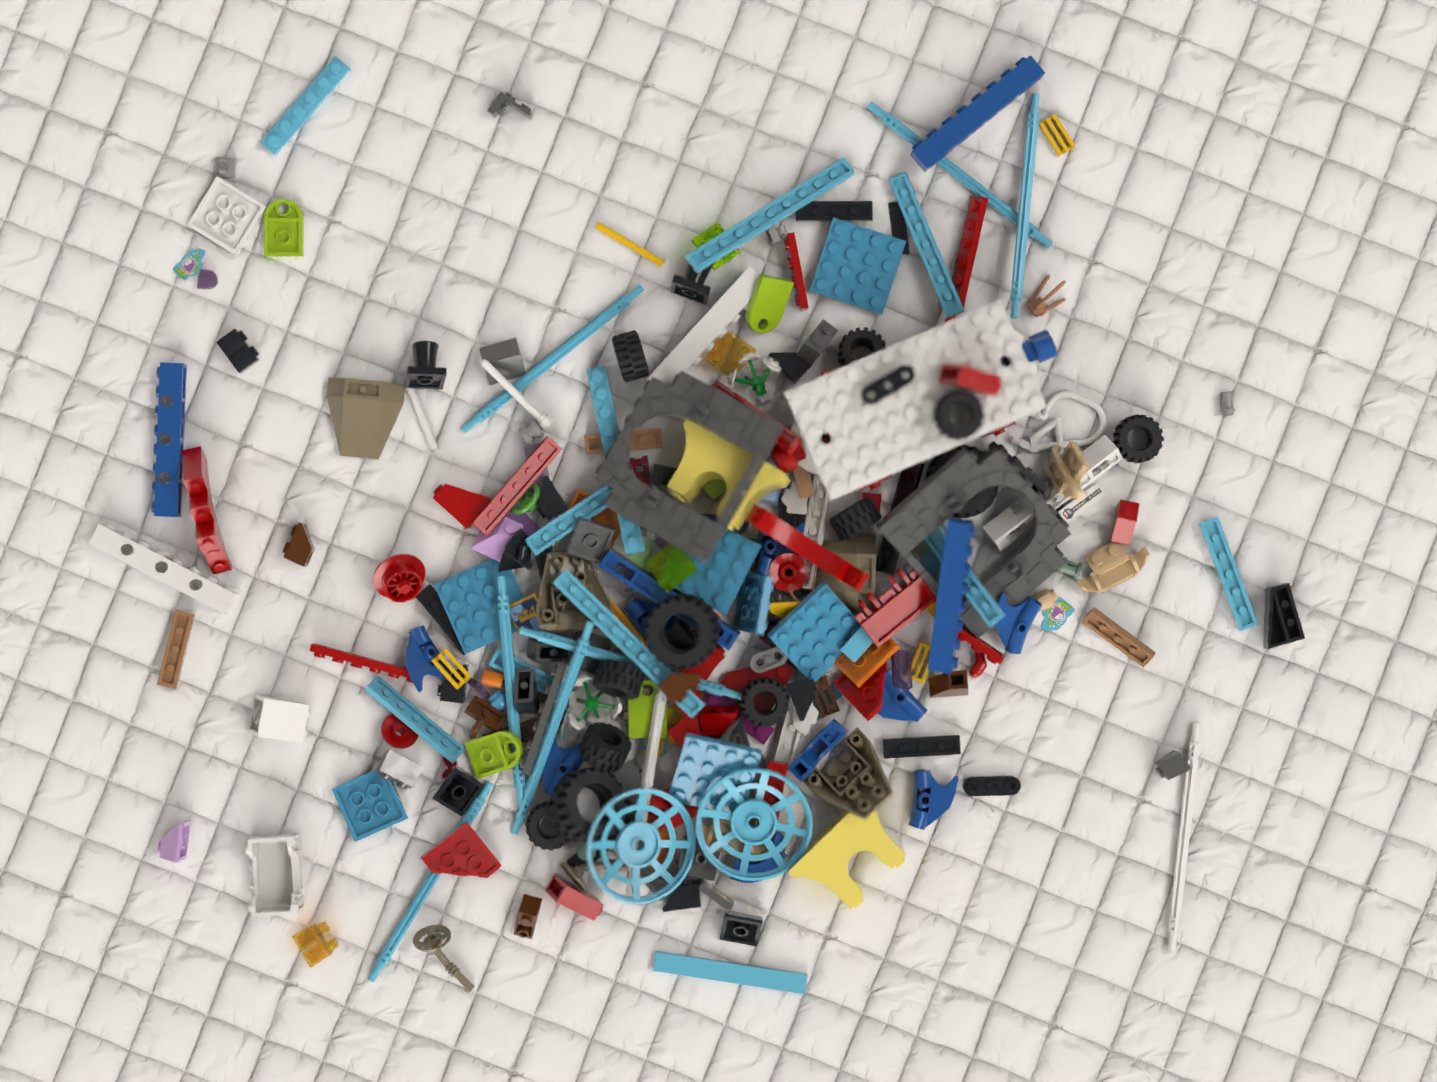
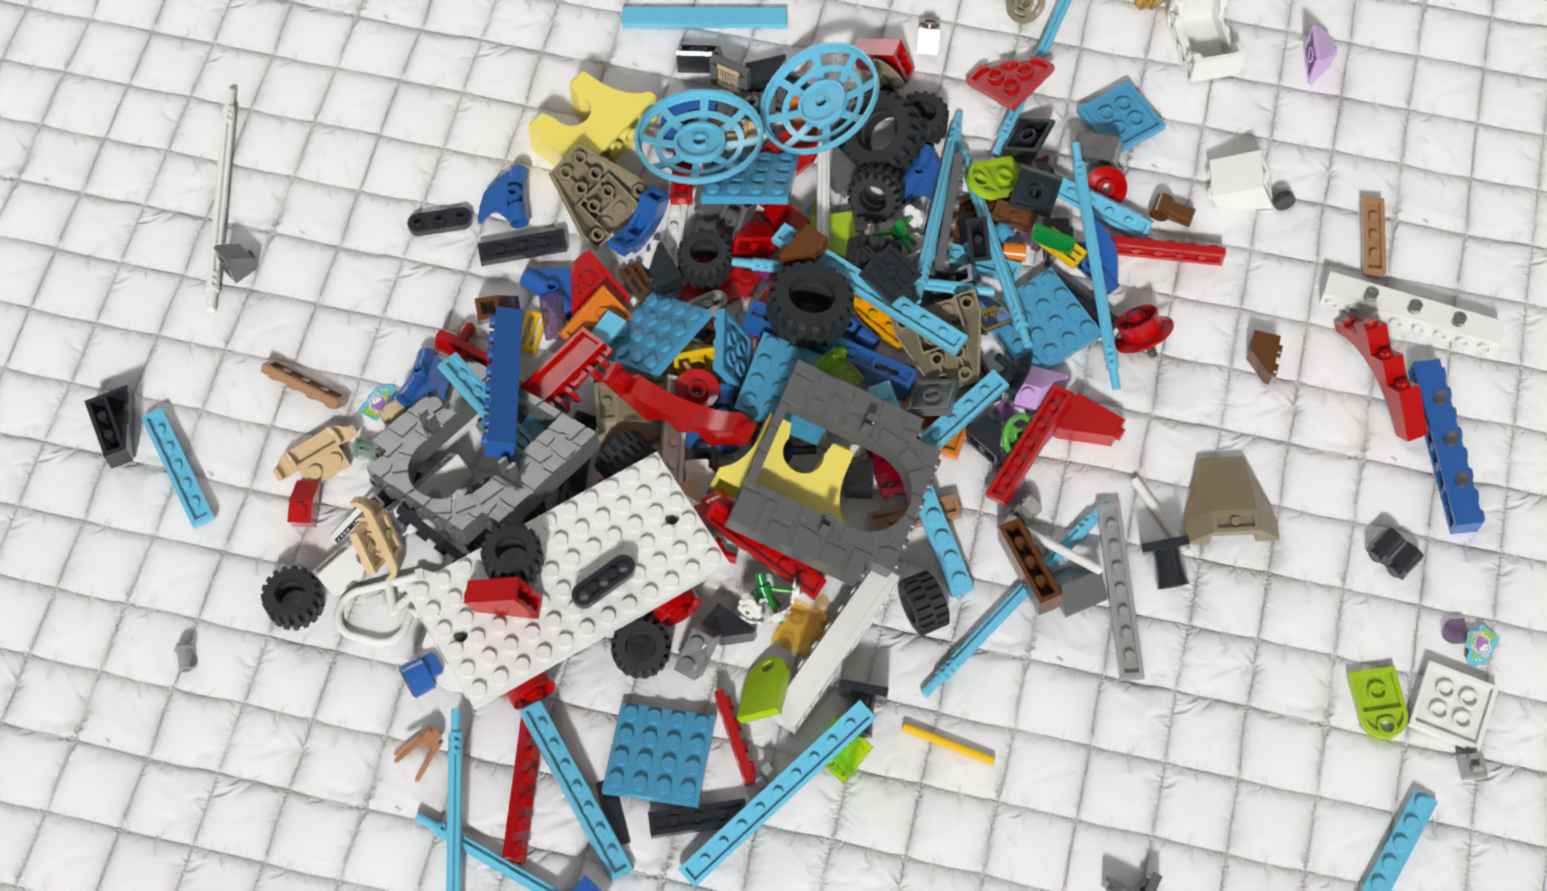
camera: 170 degrees right, 25 degrees down
(245, 696) = (1284, 200): none -> pearl dark grey tile
(351, 703) = (1166, 208): none -> reddish brown piece
(427, 647) = (1109, 348): none -> medium azure axle
(460, 670) = (1053, 239): none -> green tile
(464, 728) = (1036, 189): none -> black plant
(468, 351) = (1120, 592): none -> light grey plate
(539, 373) = (1029, 566): none -> reddish brown brick
(609, 645) = (890, 275): none -> black plate

